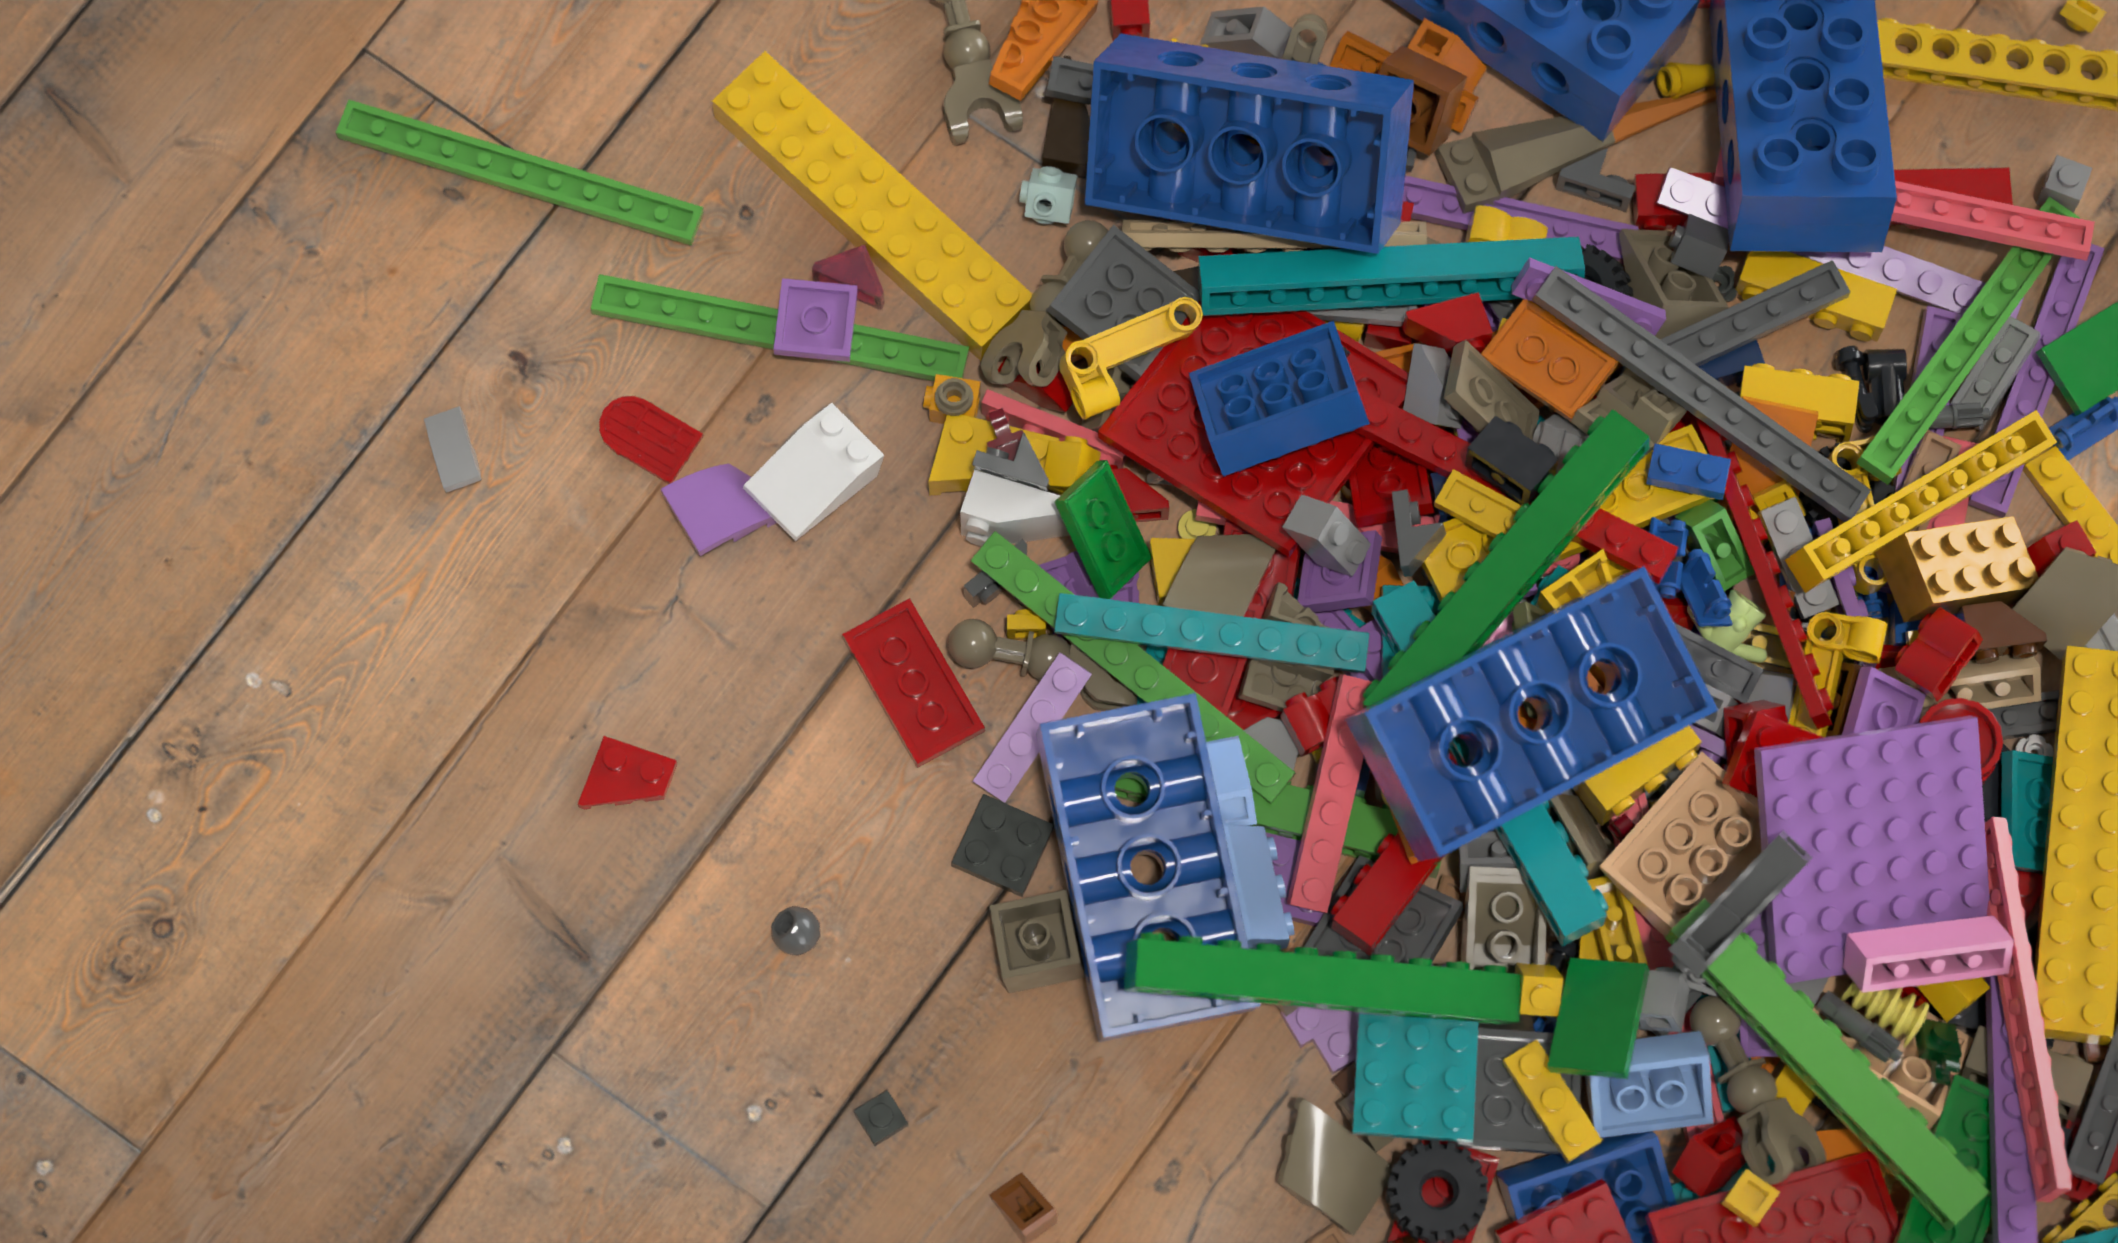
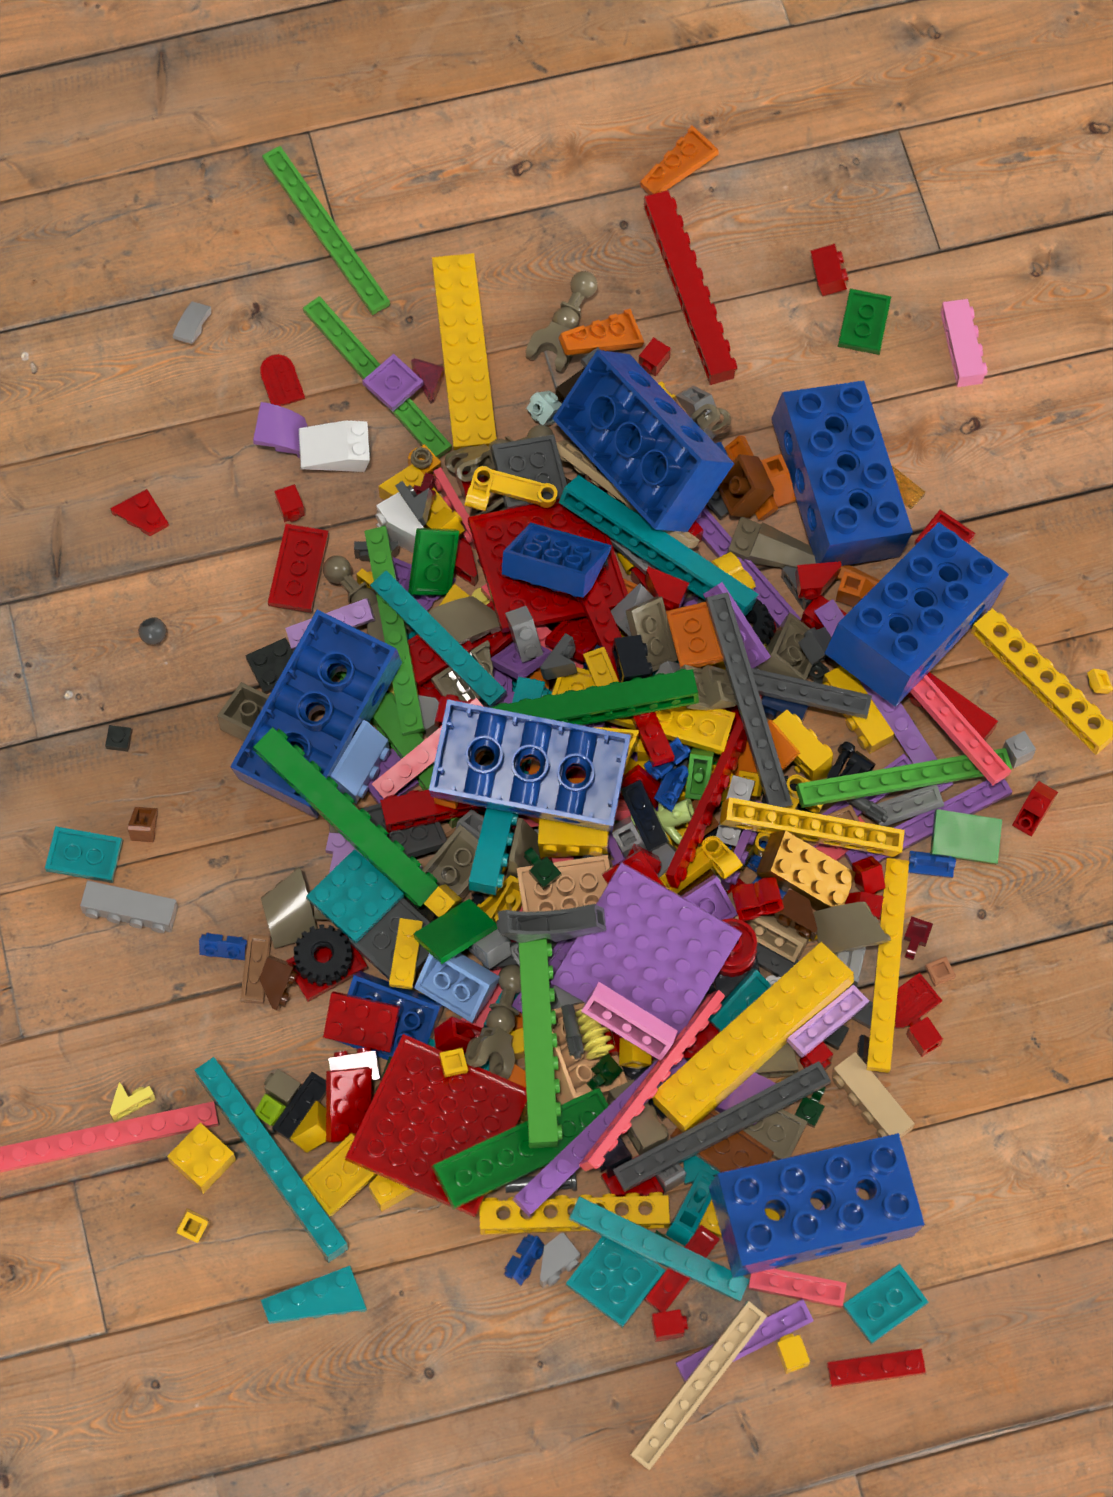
camera: 40 degrees right, 5 degrees down
(822, 601) = (289, 503): none -> red brick
(1231, 782) = (386, 705): light blue slope -> none
(1621, 158) = (815, 578): none -> red slope
(1642, 840) = (542, 870): none -> dark green plate
(1680, 133) = (853, 588): none -> orange slope
(1683, 78) = (878, 568): yellow cone -> none
(1688, 471) = (712, 730): blue plate -> none
(2030, 505) = (868, 875): none -> red brick

